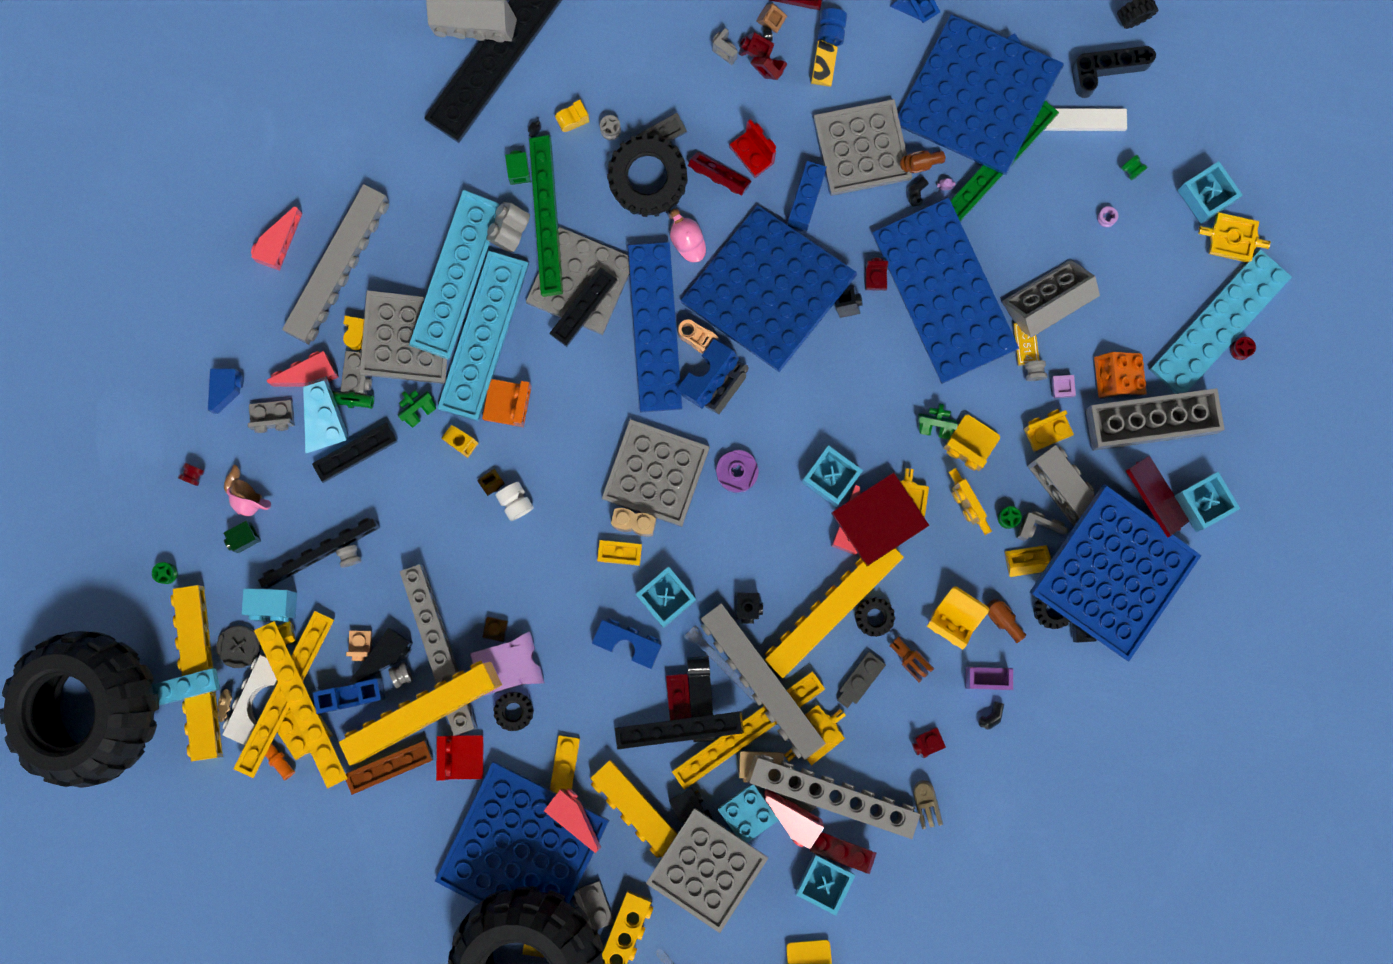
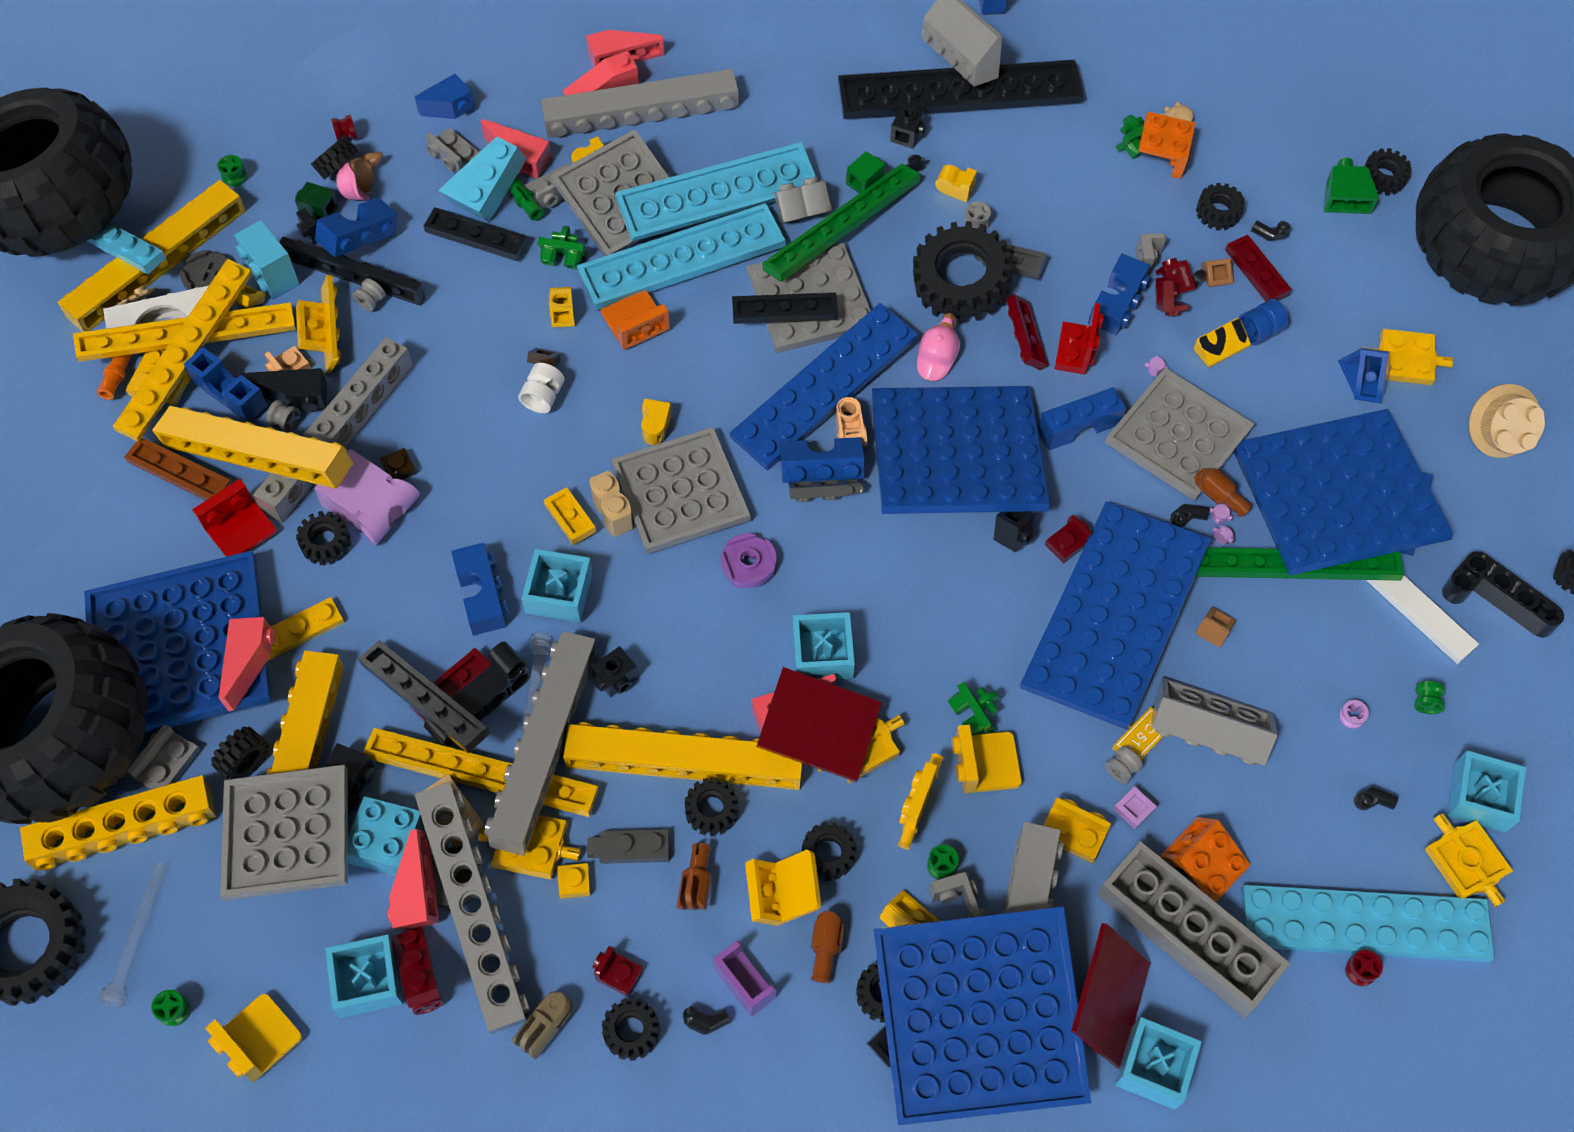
camera: 50 degrees right, 20 degrees down
(216, 500) = (334, 157): none -> black tyre
(258, 557) = (306, 225): none -> black plate
(292, 543) = (373, 222): none -> blue arch
(295, 273) = (609, 73): none -> coral slope
(346, 604) = (318, 325): none -> yellow bracket
(503, 108) = (907, 126): none -> black brick
(593, 445) = (655, 421): none -> yellow leg
(629, 861) = (240, 754): none -> black tyre
(735, 77) = (1127, 278): none -> blue arch
(805, 117) = (1155, 366): none -> lavender piece
(855, 726) = (573, 881): none -> yellow plate
(932, 173) = (1220, 514): none -> lavender piece
(959, 561) = (839, 836): none -> black tyre
(980, 760) = (617, 1015): none -> black tyre
(996, 241) = (1215, 626): none -> medium nougat slope
(1160, 251) = (1373, 796): none -> black arm

